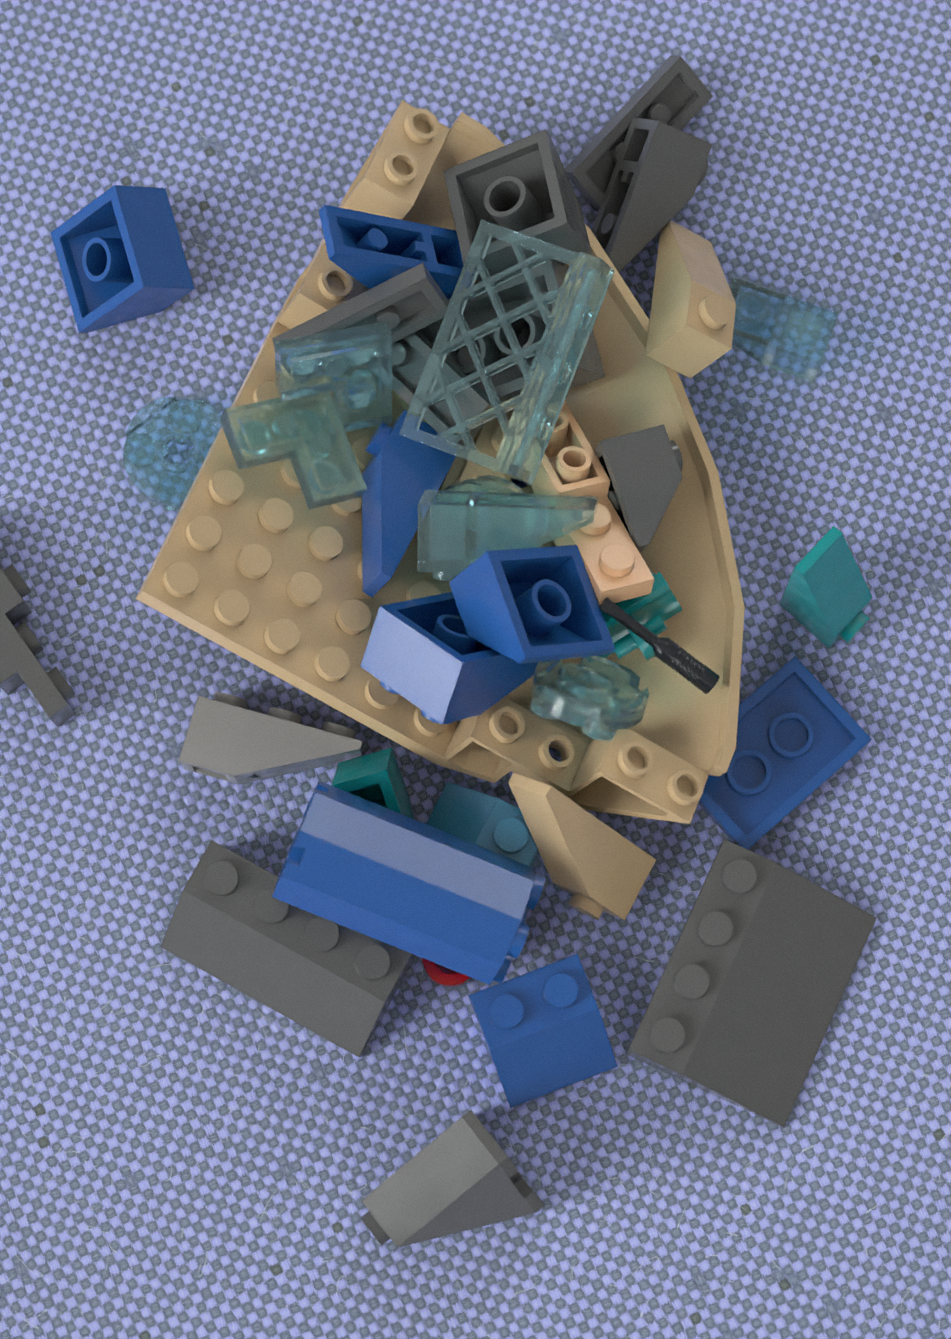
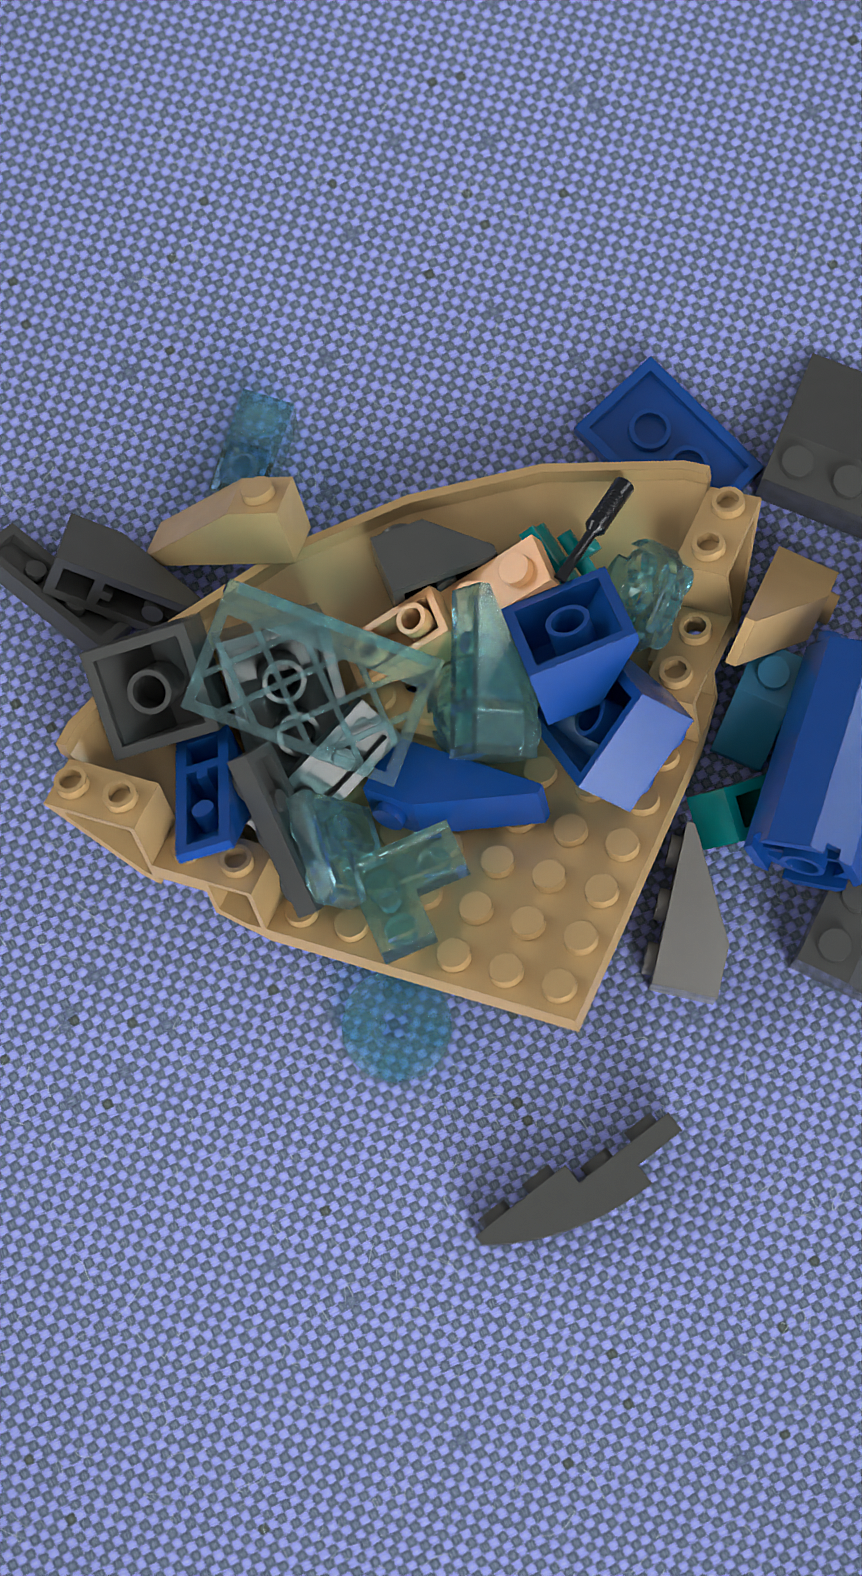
camera: 95 degrees left, 0 degrees up
(122, 257) = (197, 1097): blue slope -> none
(828, 591) = (515, 396): teal slope -> none

